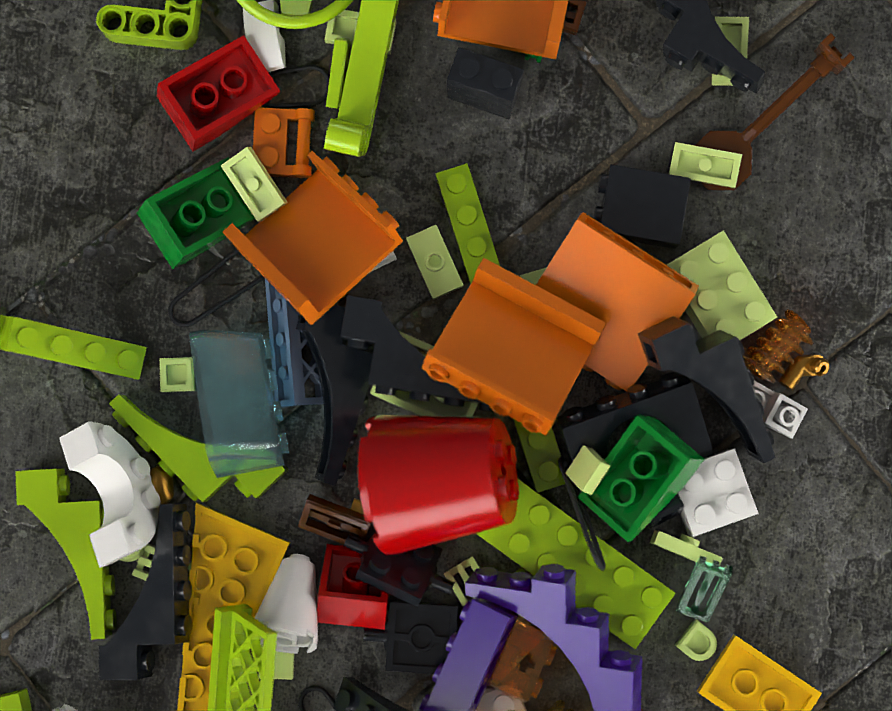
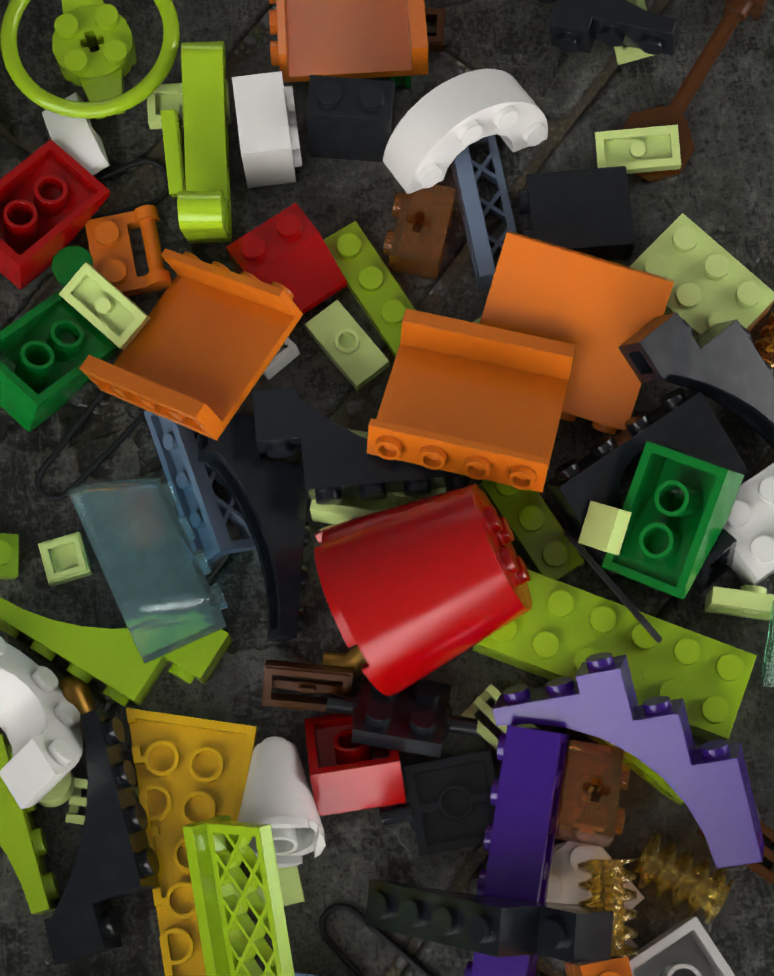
camera: 15 degrees left, 10 degrees down
(236, 139) = (68, 262): none -> green tile
(405, 186) = (290, 253): none -> red slope
(413, 72) = (267, 129): none -> white brick
(530, 169) = (423, 251): none -> clear orange brick
(561, 170) = (471, 208): none -> sand blue fence
(567, 109) = (456, 116): none -> white brick

